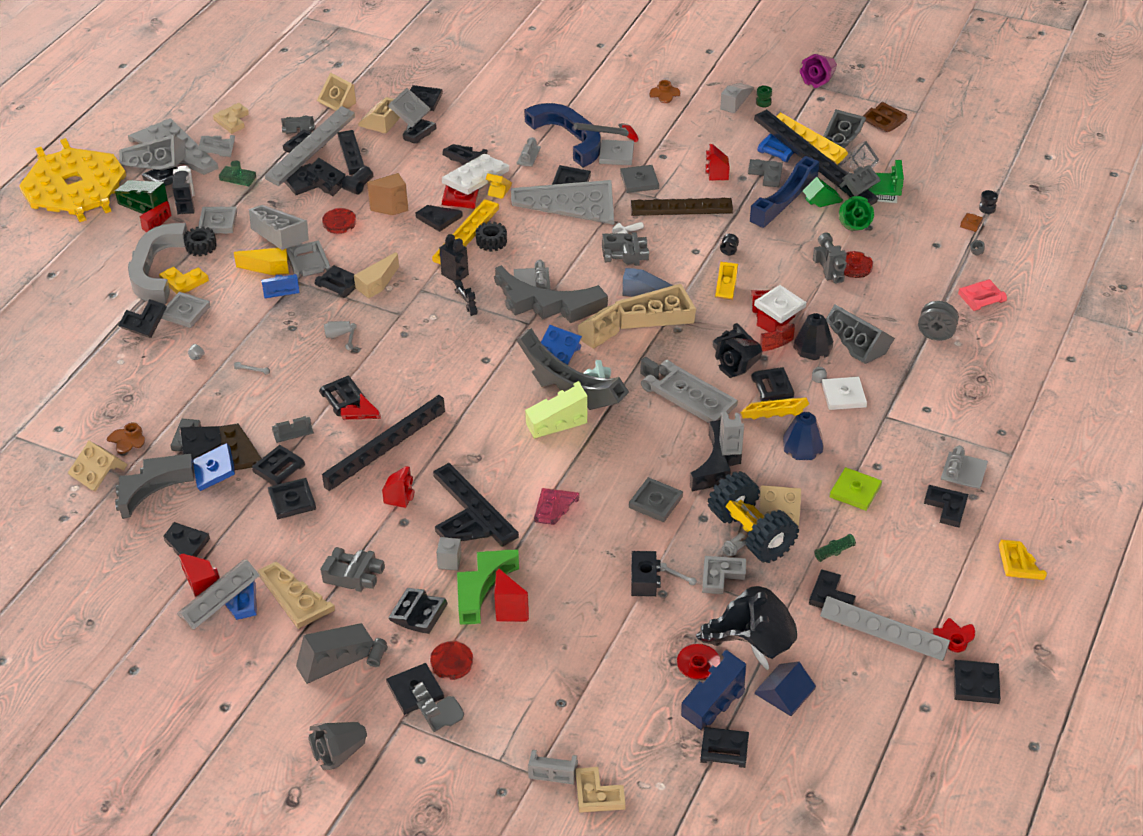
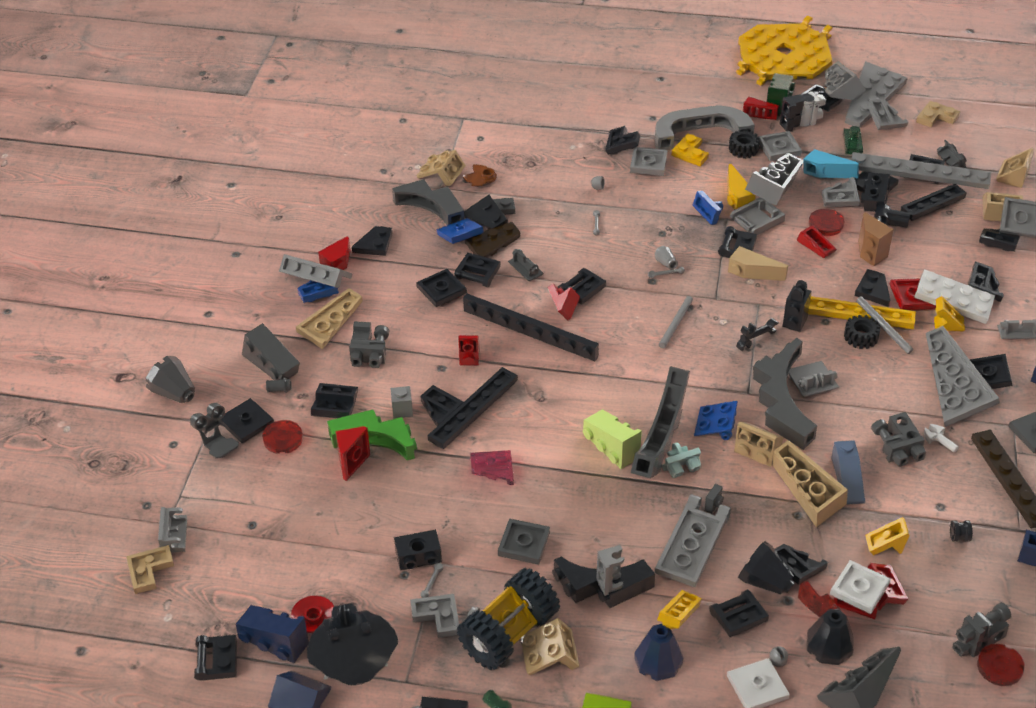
camera: 75 degrees right, 0 degrees up
(271, 193) = (829, 166): none -> medium azure slope
(310, 200) = (841, 194): none -> light grey wing
(362, 233) = (812, 239): none -> red slope
(411, 339) = (674, 324): none -> light grey bar
(499, 219) = (887, 328): none -> light grey bar

